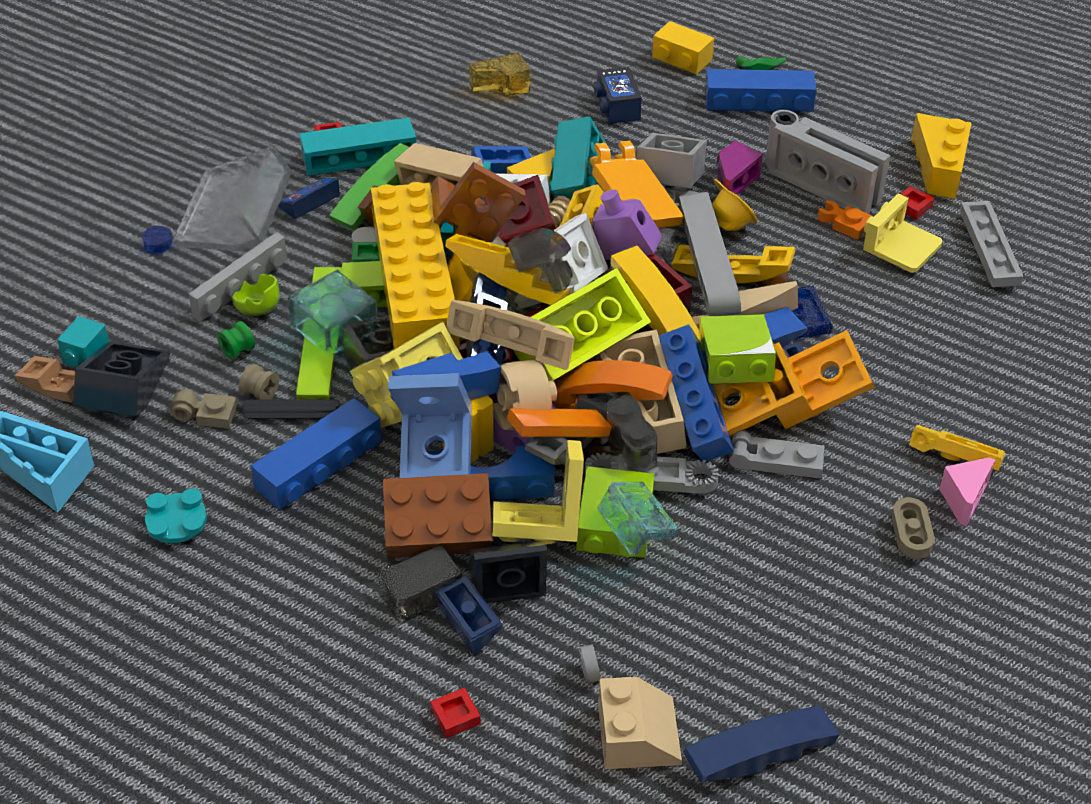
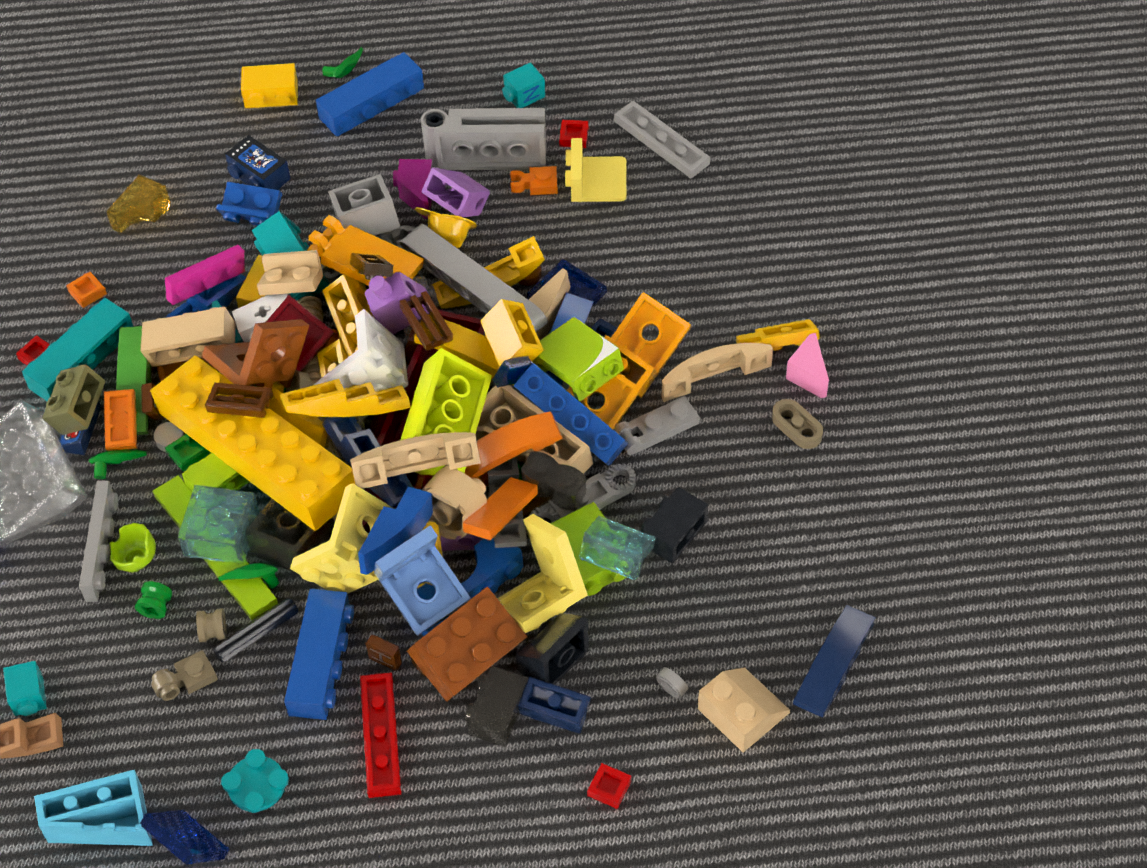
camera: 35 degrees left, 10 degrees up
(77, 514) = (184, 837): none -> clear blue tile
(119, 378) = (89, 696): black slope -> none
(307, 547) = (380, 735): none -> red tile
(310, 229) = (112, 457): none -> green bar
(315, 170) = (73, 399): none -> olive brick
(328, 364) = (252, 571): none -> green bar
(336, 203) = (120, 419): none -> orange plate
(369, 484) = (384, 652): none -> reddish brown tile
(409, 109) = (86, 289): none -> orange tile
(418, 224) = (236, 403): none -> reddish brown tile
(496, 138) = (205, 274): none -> dark pink plate
(543, 248) = (370, 366): clear smoke brick -> none
(559, 164) = (290, 272): none -> tan bracket
(584, 106) = (249, 203): none -> blue bracket
(624, 186) = (371, 265): none -> dark brown plate
(632, 231) = (436, 316): none -> reddish brown tile
(665, 320) = (511, 371): none -> clear blue tile
(691, 295) = (511, 332): none -> yellow brick
(714, 537) = (675, 523): none -> black brick
(769, 192) = (463, 199): none -> medium lavender torso
(874, 433) = (748, 356): none -> tan slope
(900, 143) = (523, 86): none -> teal brick
(941, 152) = (565, 75): yellow wedge -> none

